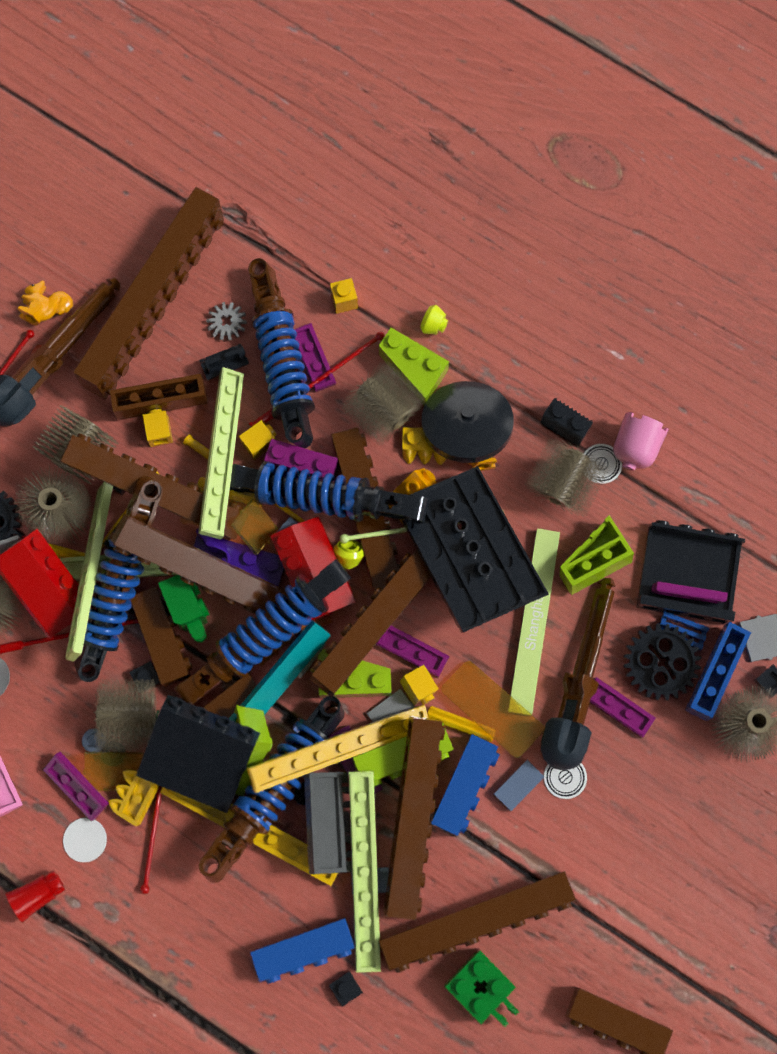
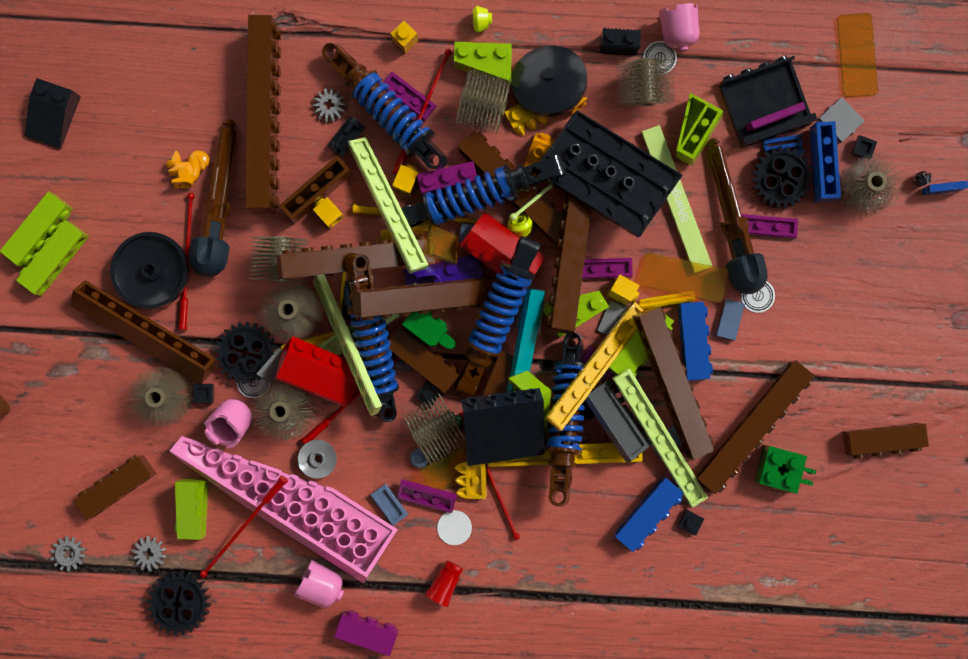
camera: 30 degrees left, 10 degrees up
(31, 772) = (389, 504): none -> sand blue tile

